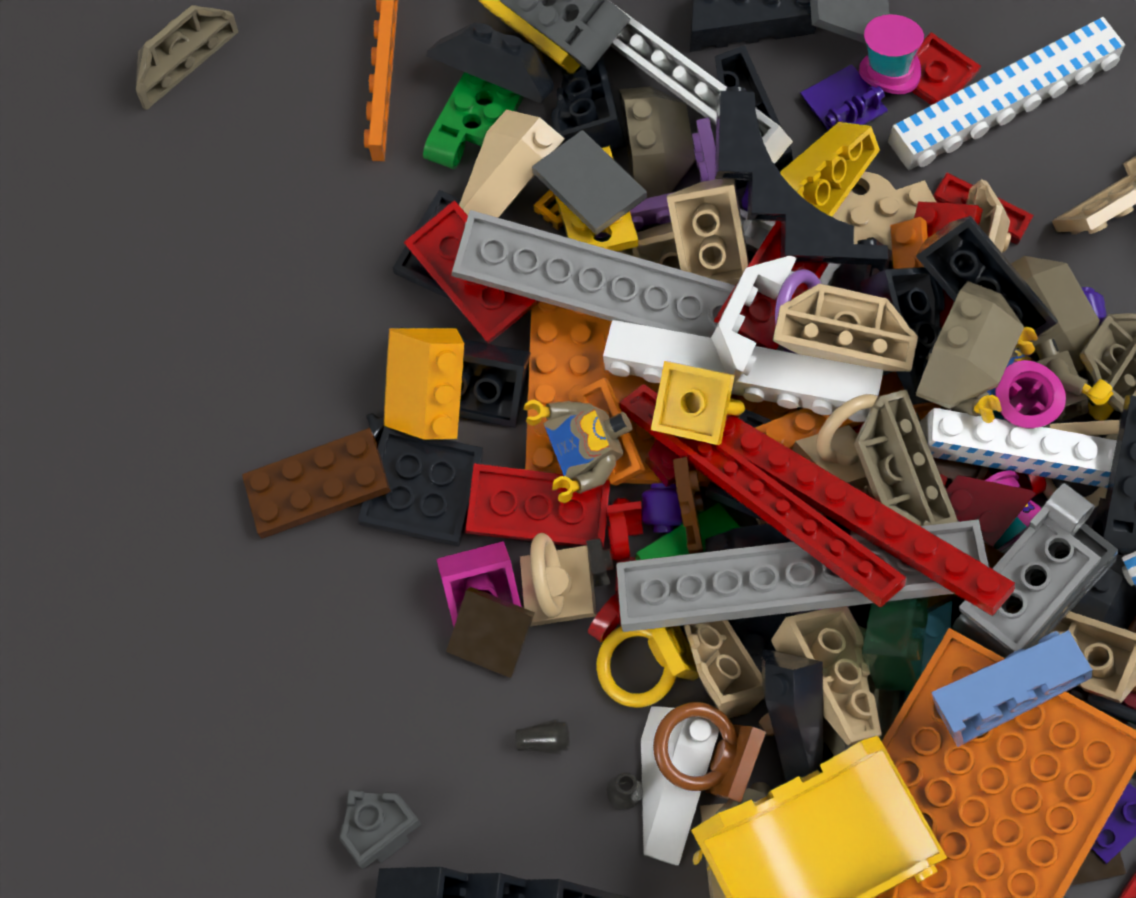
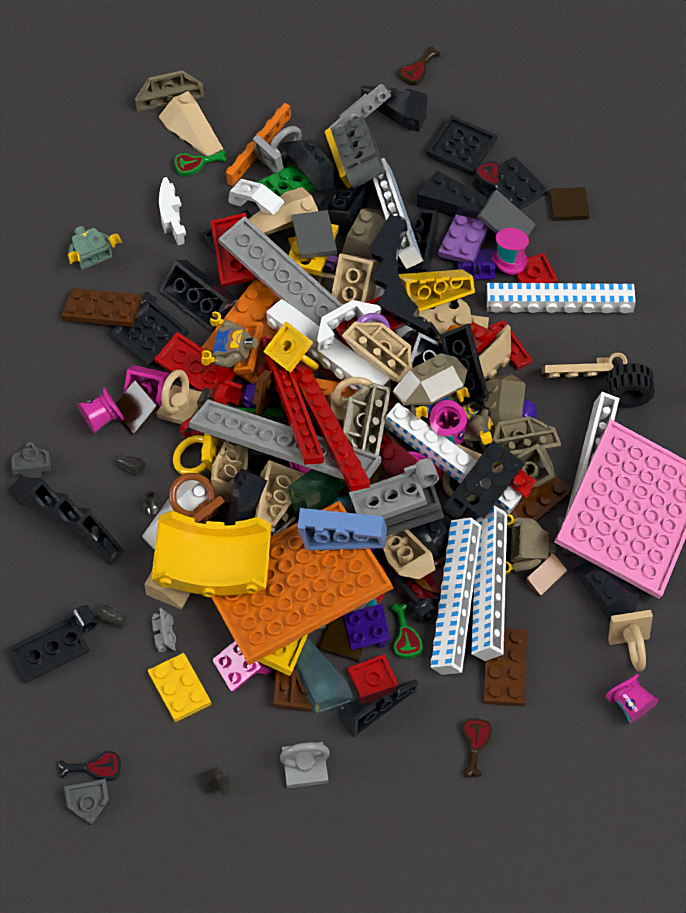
camera: 30 degrees right, 10 degrees down
(227, 385) = (91, 247): none -> sand green torso
(245, 87) = (189, 123): none -> tan wedge
(293, 159) = (188, 165): none -> green piece
(313, 256) = (169, 211): none -> white slope
(421, 79) = (269, 154): none -> light grey tile
(424, 382) = (177, 284): light orange slope -> none
(437, 674) = (100, 411): none -> dark pink hat
(450, 158) = (256, 192): none -> white slope
(802, 71) = (463, 239): none -> medium lavender plate

